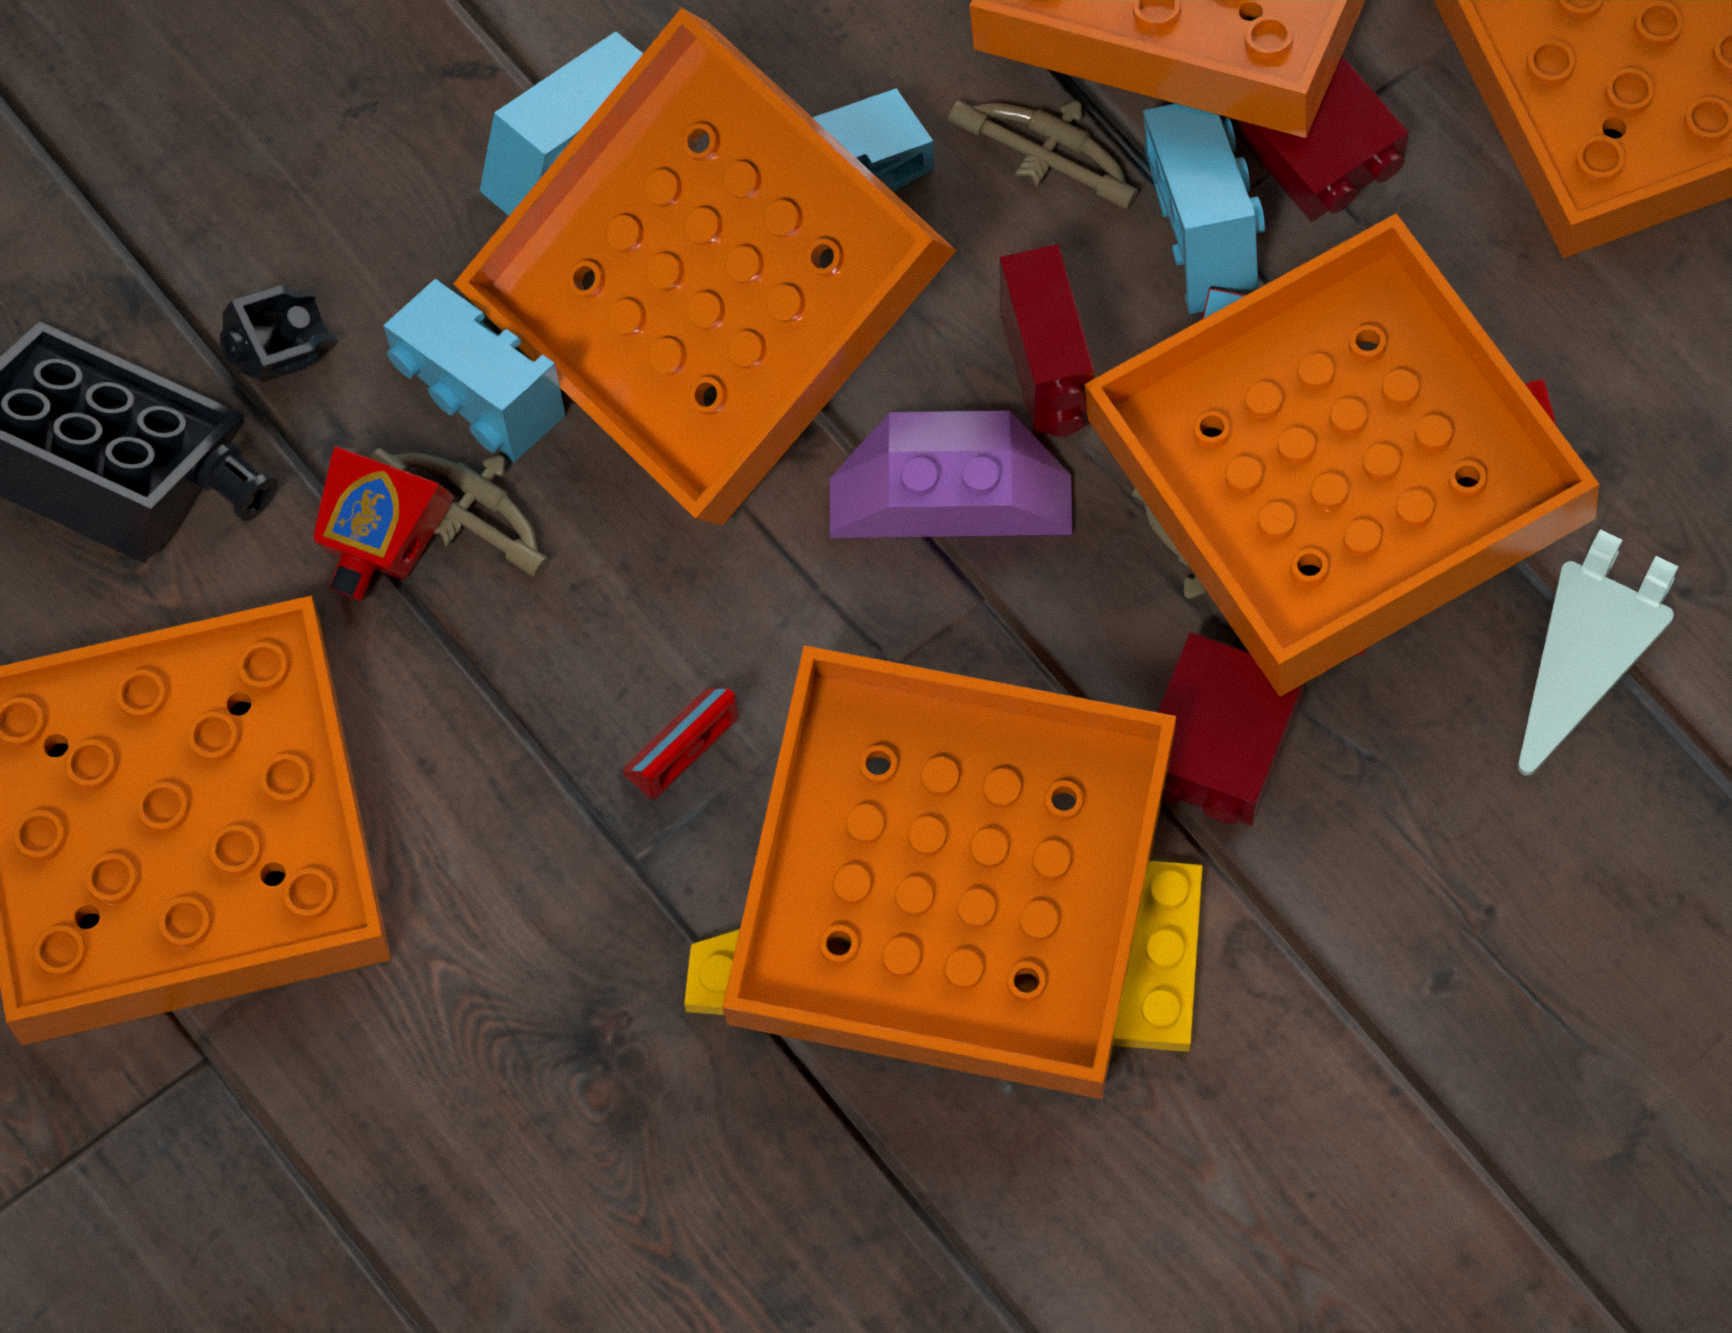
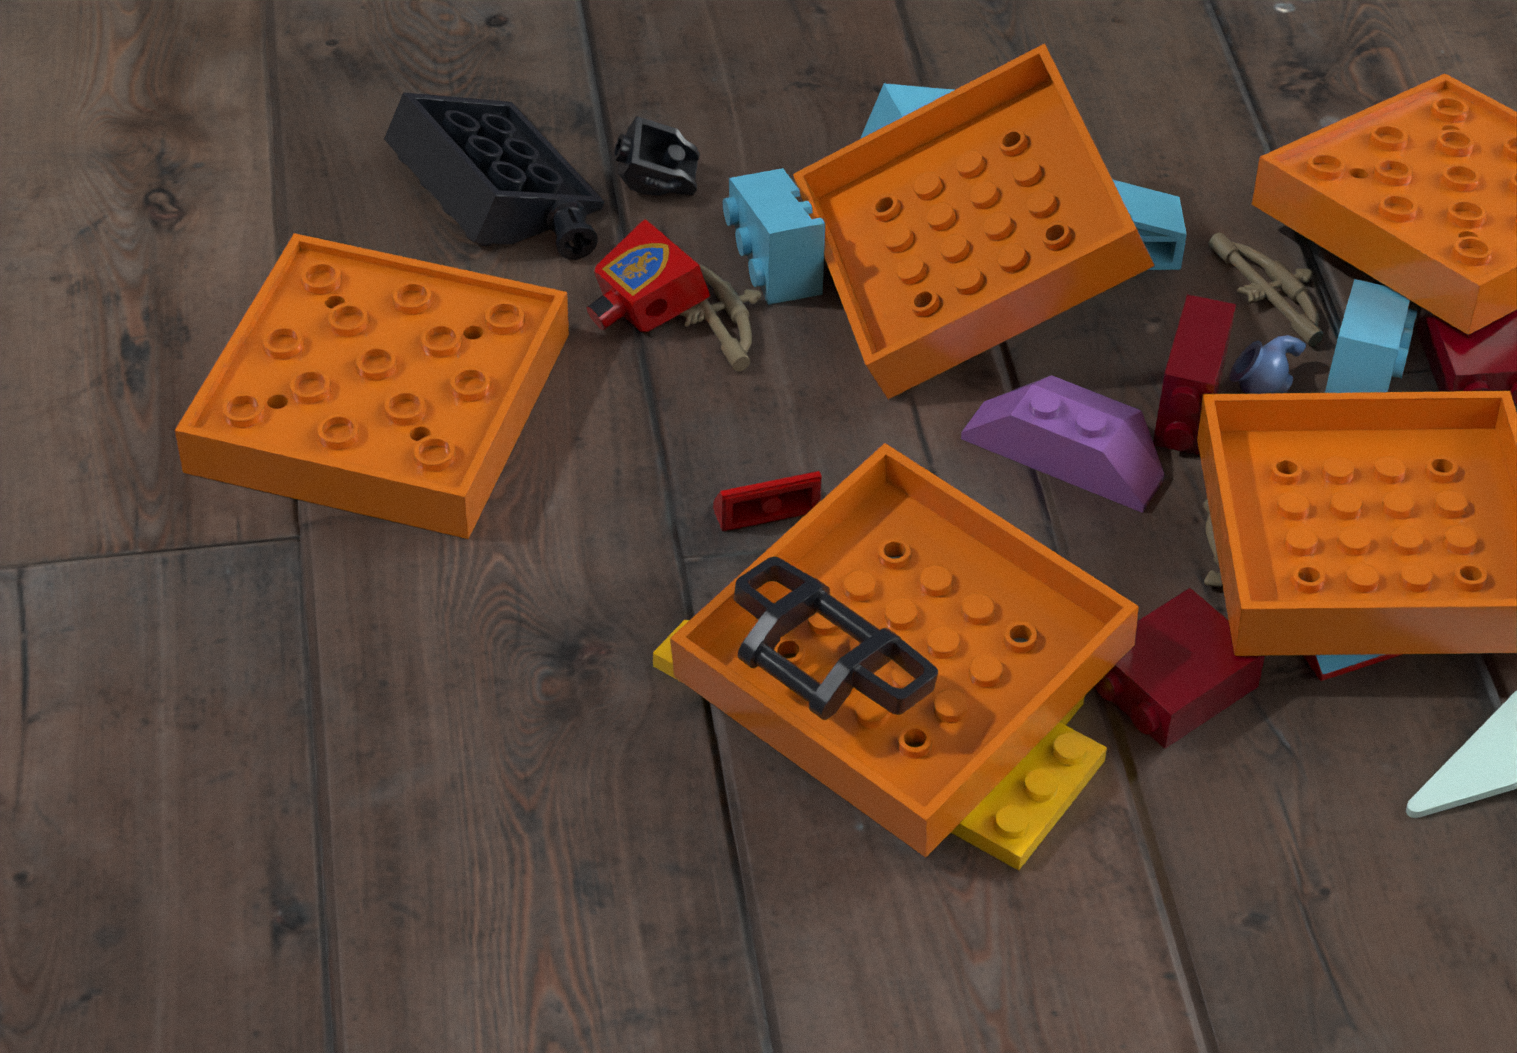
camera: 25 degrees right, 20 degrees down
(944, 963) = (852, 669): none -> black bar
(1108, 289) = (1266, 367): none -> medium blue piece

